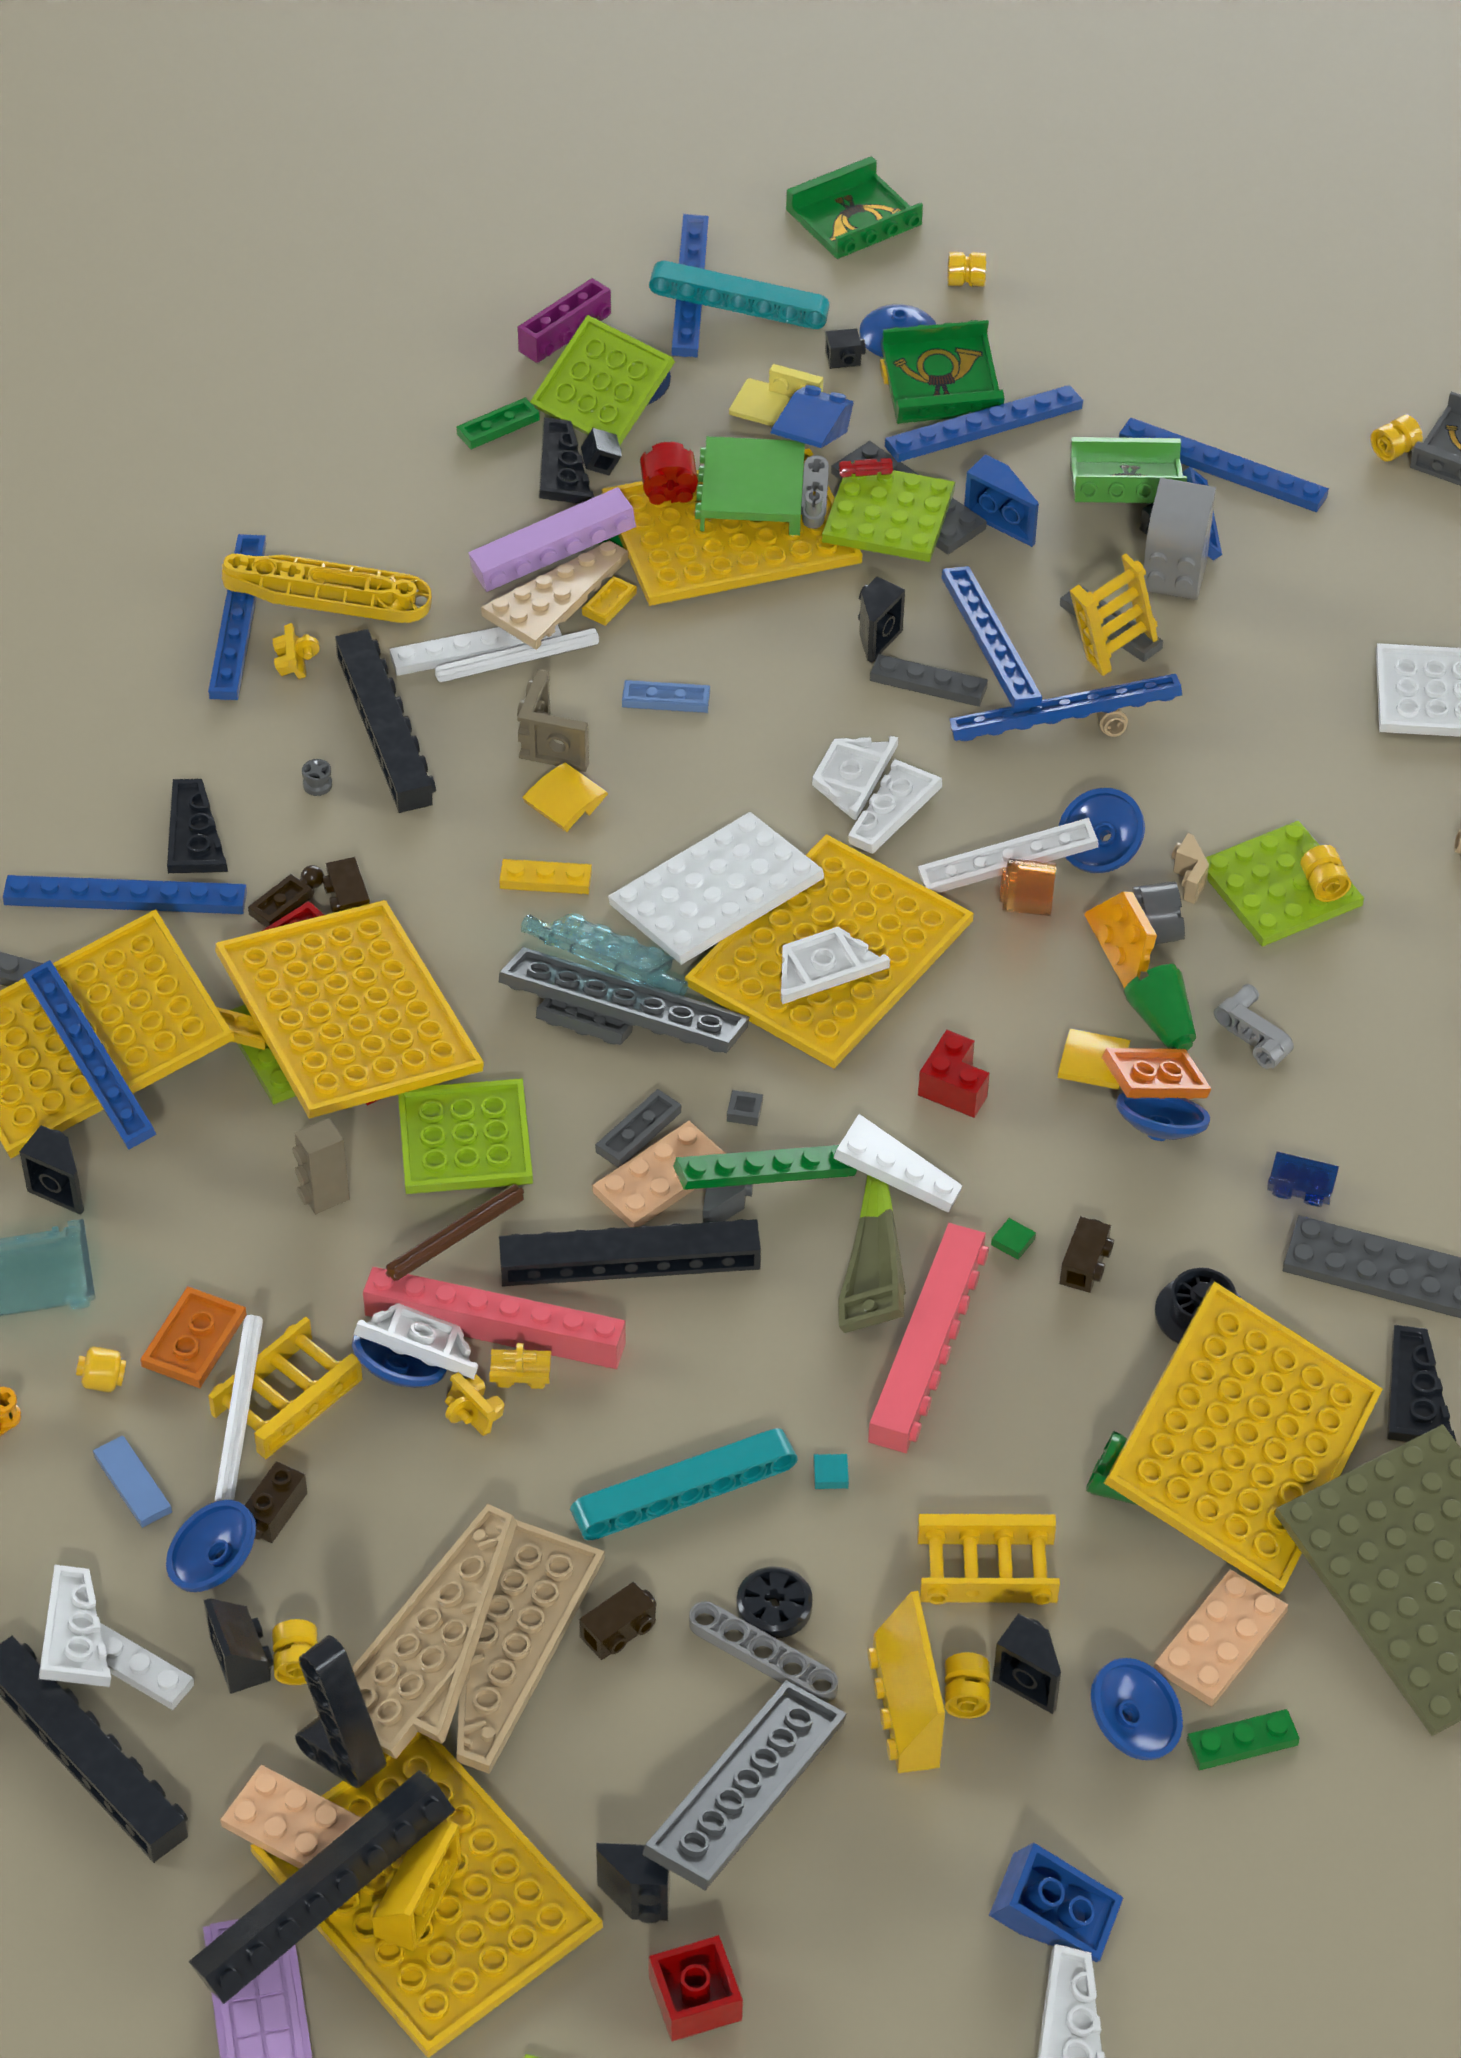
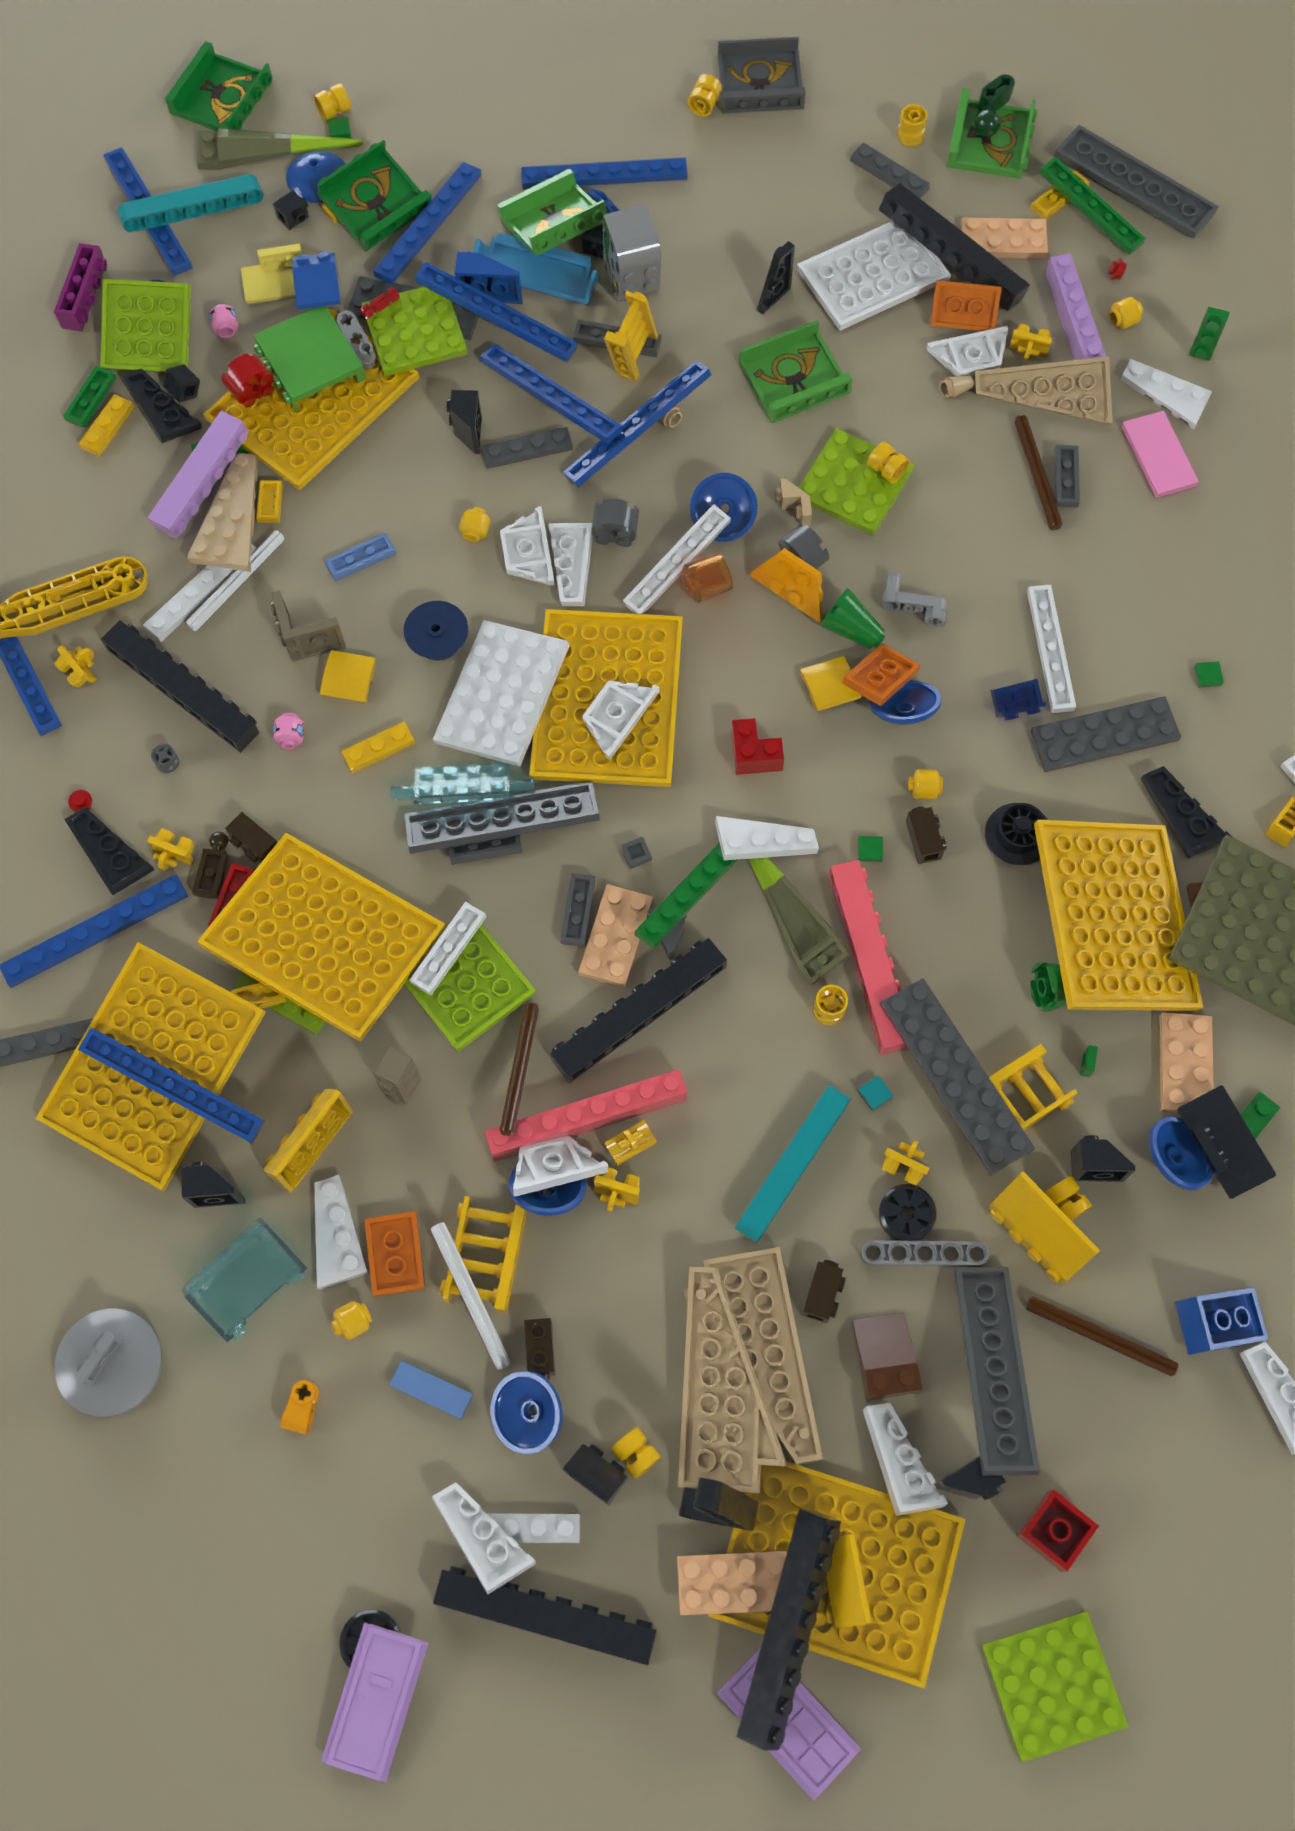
camera: 30 degrees left, 20 degrees up
(146, 1294) = (337, 1242): none -> white wing
(187, 1179) = (308, 1140): none -> yellow slope
(204, 771) = (79, 800): none -> red plate
(253, 862) = (168, 851): none -> yellow hips
(464, 814) = (288, 730): none -> bright pink head
(468, 1085) = (447, 948): none -> white plate
(495, 457) = (106, 425): none -> yellow plate
(572, 1826) = (904, 1474): none -> white wing
(637, 1725) = (886, 1357): none -> reddish brown slope
(688, 795) = (436, 630): none -> dark blue piece
(691, 416) = (223, 320): none -> bright pink head
(799, 1541) = (894, 1158): none -> yellow hips
(811, 721) = (474, 524): none -> yellow head
(831, 267) = (234, 147): none -> olive plate
(844, 1355) = (830, 1005): none -> yellow wheel
(903, 1844) = (1102, 1336): none -> reddish brown axle
(930, 1490) = (957, 1076): none -> dark grey plate
(957, 298) = (339, 128): none -> green tile
(966, 787) = (615, 522): none -> dark grey brick
(990, 535) = (496, 312): none -> blue plate
(1088, 532) = (550, 273): none -> dark azure slope
(1102, 1568) = (1088, 1060): none -> green tile
(1126, 1206) = (925, 784): none -> yellow head
(1198, 1727) = (1226, 1142): none -> black bracket
(1292, 744) = (793, 372): none -> bright green panel
(1337, 642) = (778, 277): none -> black wing
(1384, 1151) = (1051, 649): none -> white plate

